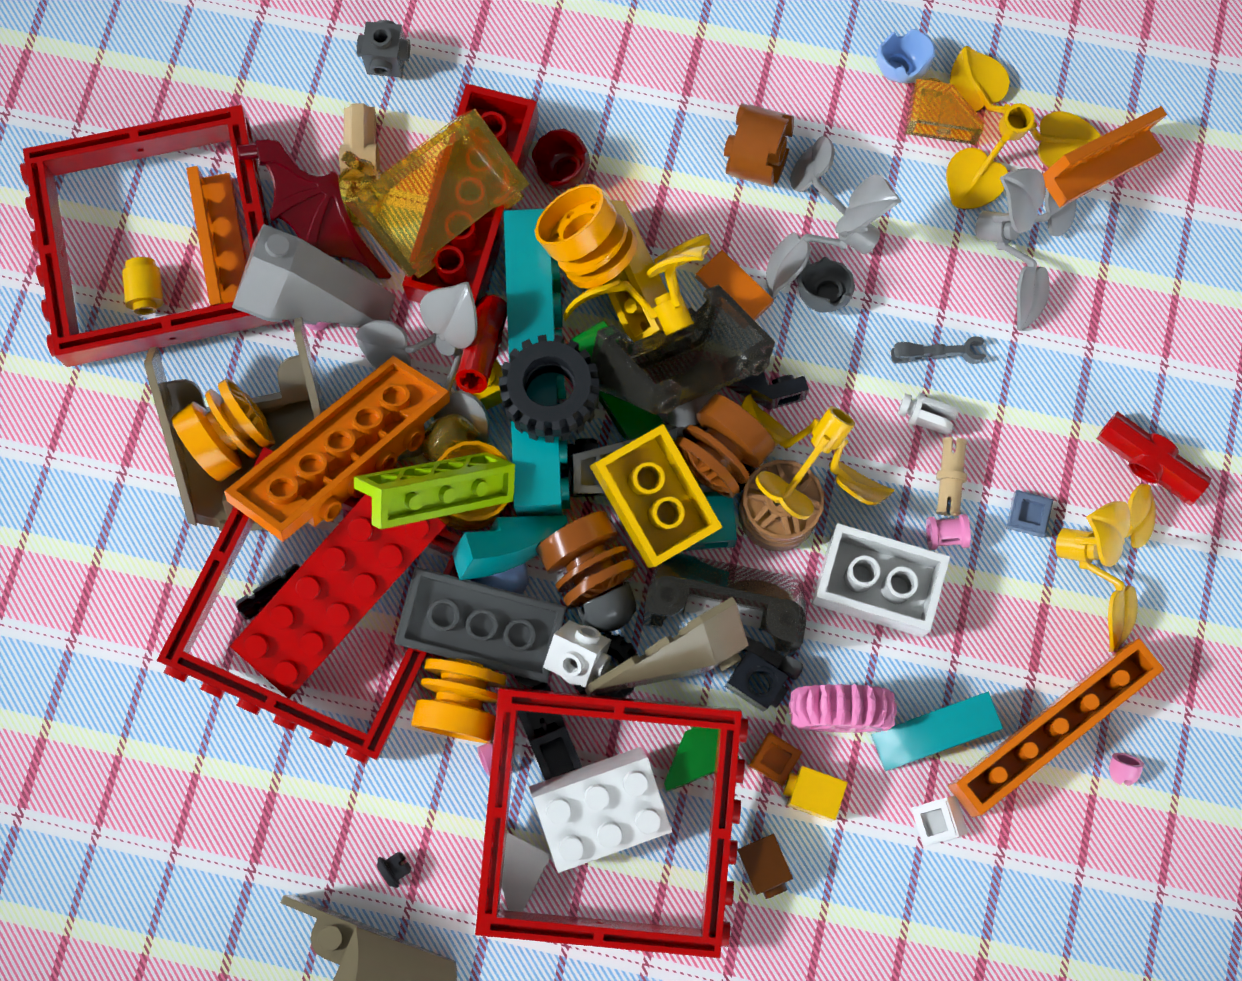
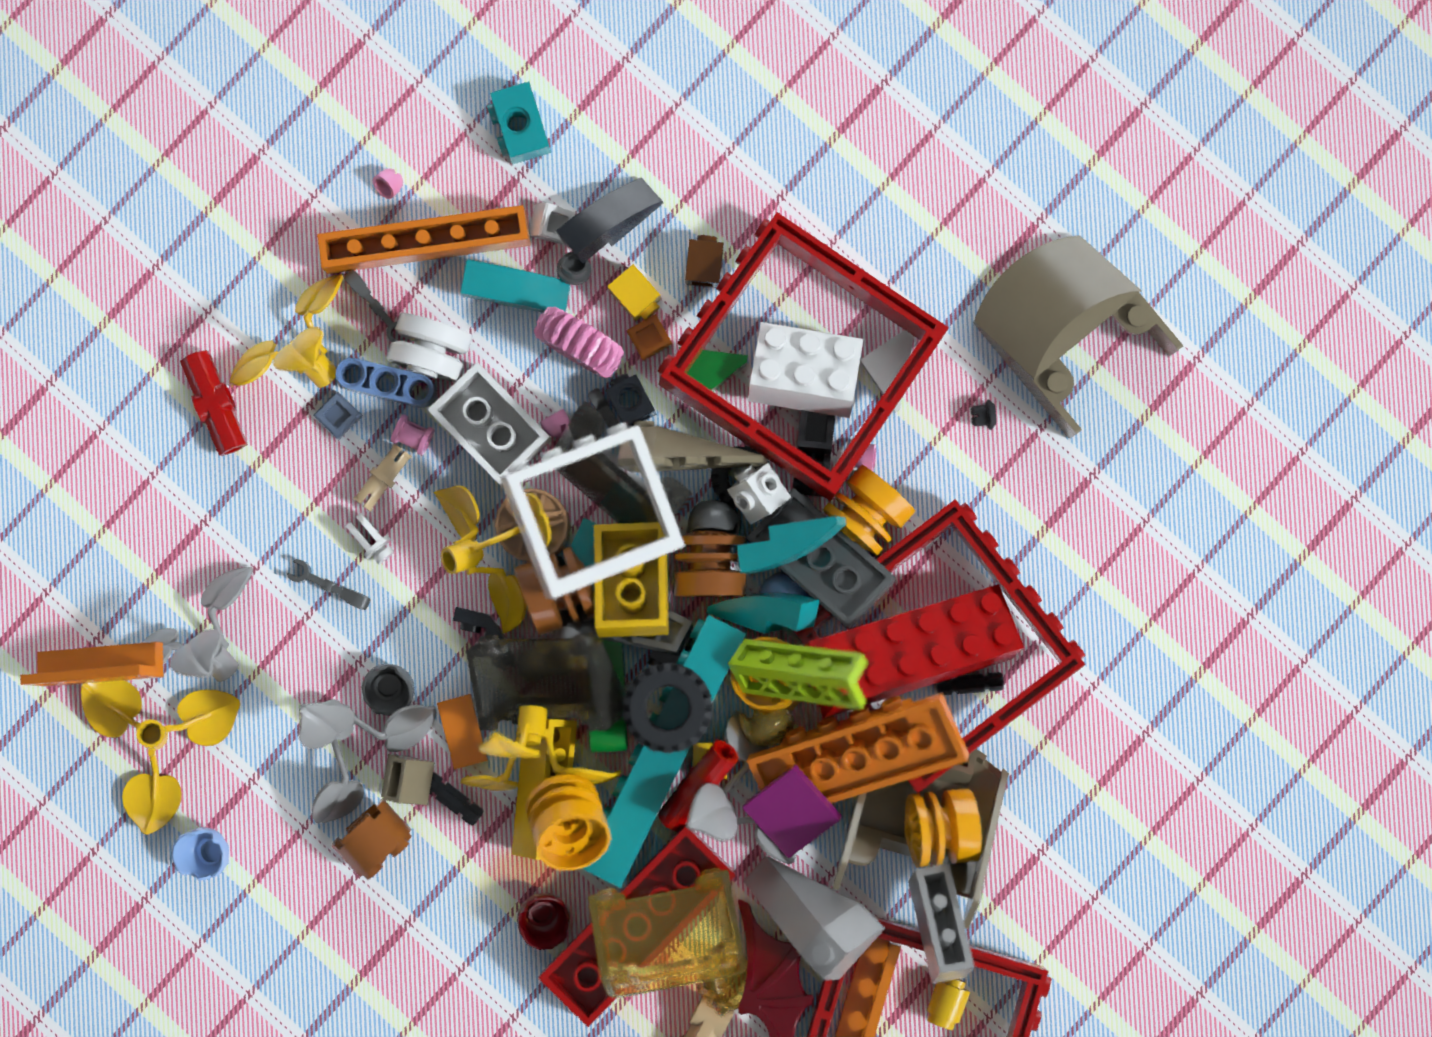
camera: 150 degrees left, 10 degrees up
(177, 337) = (940, 923): none -> light grey brick
(379, 368) = (792, 811): none -> magenta tile
(522, 615) = (787, 543): none -> teal slope
(679, 489) = (555, 458): none -> white window
(708, 223) = (455, 800): none -> black axle
(759, 213) = (407, 780): none -> dark tan piece
(820, 620) = (555, 424): none -> bright pink hinge
(886, 855) = (609, 219): none -> black slope
(890, 784) = (572, 270): none -> dark grey plate
(941, 113) = (202, 788): clear yellow slope -> none
(983, 614) = (430, 344): none -> white wheel
(1011, 897) = (513, 103): none -> teal brick
(1020, 560) = (370, 380): none -> medium blue beam
(1088, 649) = (361, 288): none -> dark grey piece

